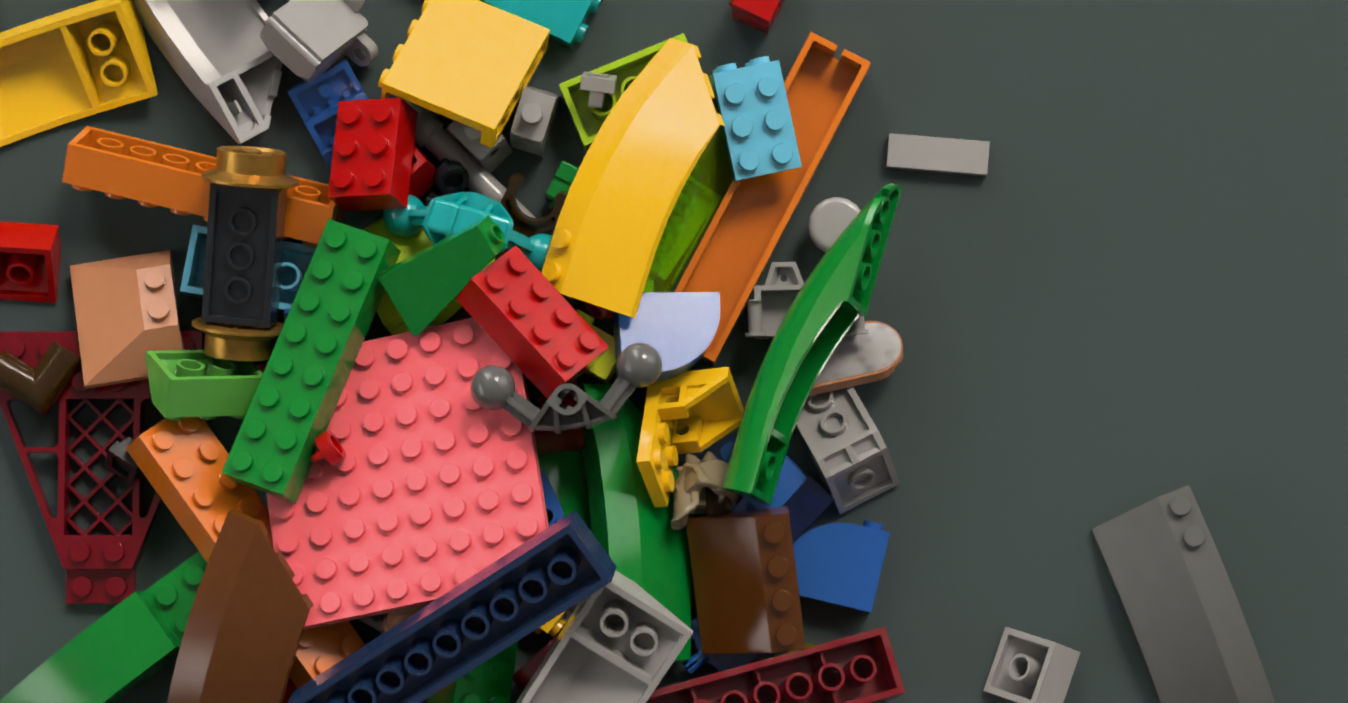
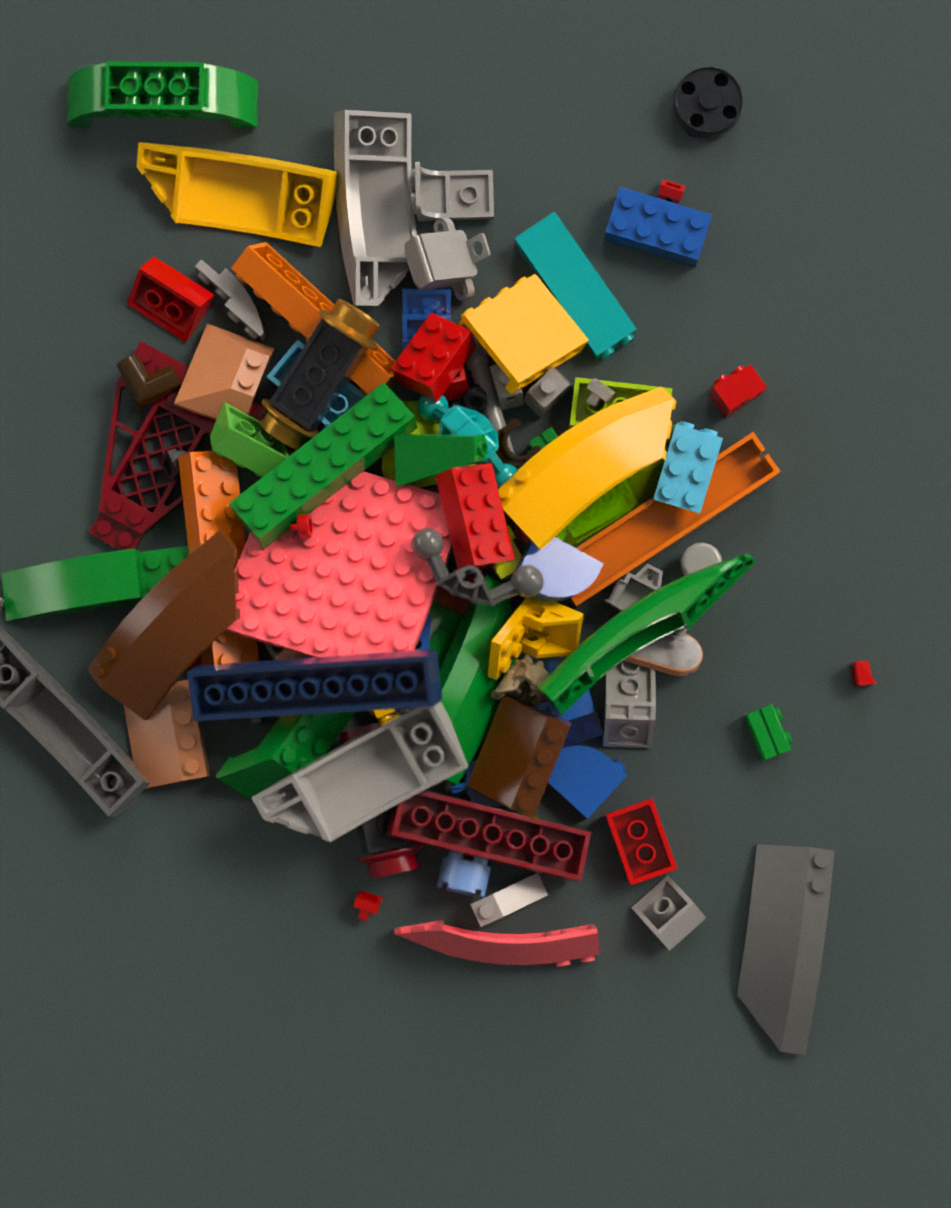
camera: 30 degrees right, 0 degrees up
(96, 218) = (239, 305): none -> light grey slope
(937, 154) = (790, 554): light grey tile -> none
(950, 604) = (640, 841): none -> red brick
(1030, 386) = (767, 732): none -> green brick
(1104, 252) = (862, 673): none -> red slope

